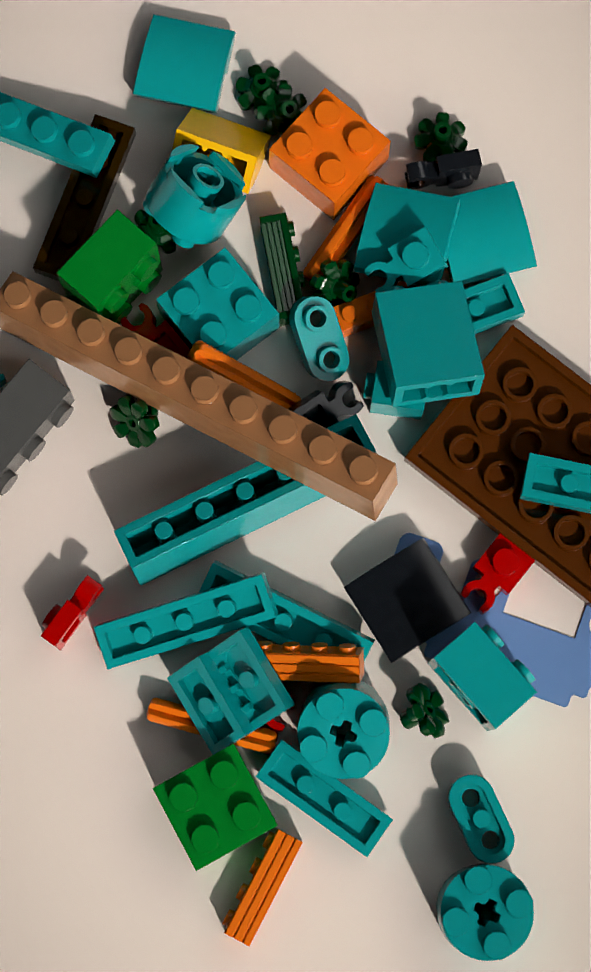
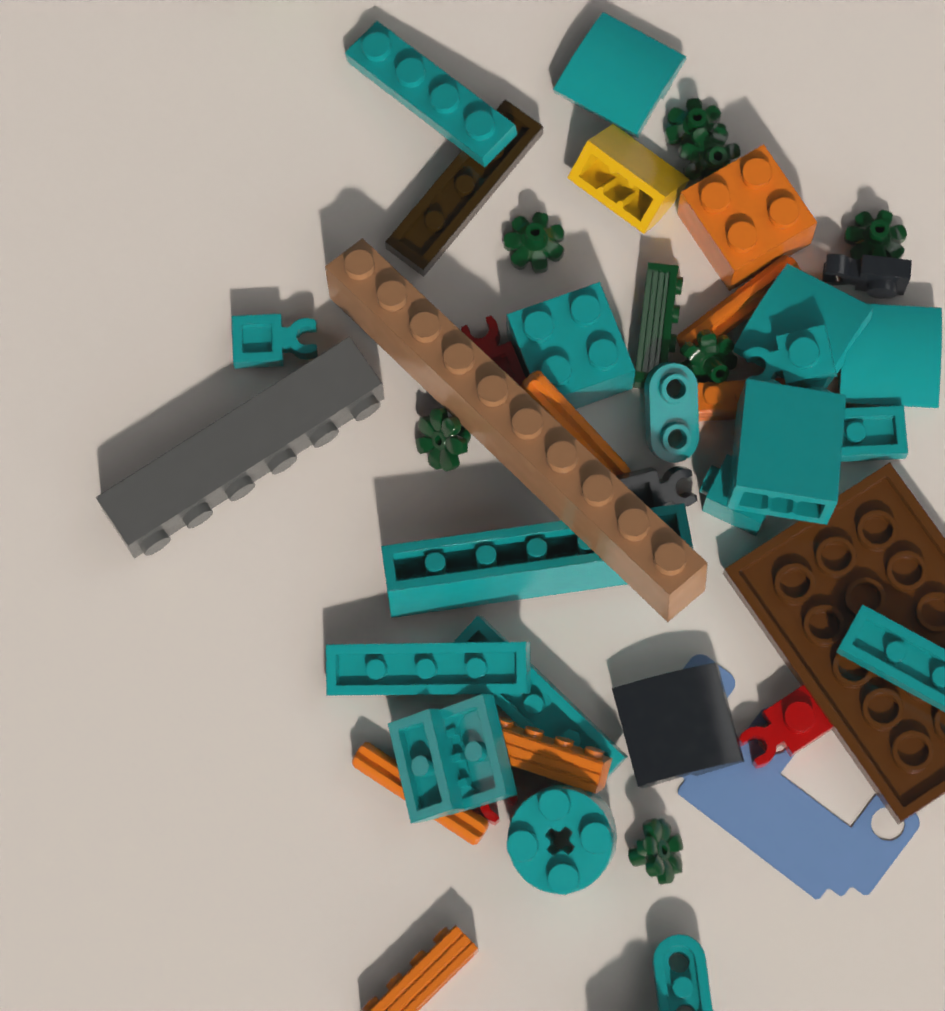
camera: 20 degrees right, 5 degrees down
(64, 620) = (297, 628): red plate -> none
(112, 269) = (470, 268): green brick -> none
(195, 196) = (585, 218): teal brick -> none
(215, 807) = (395, 879): green brick -> none
(324, 799) = (517, 910): teal plate -> none
(484, 676) = (732, 829): teal brick -> none

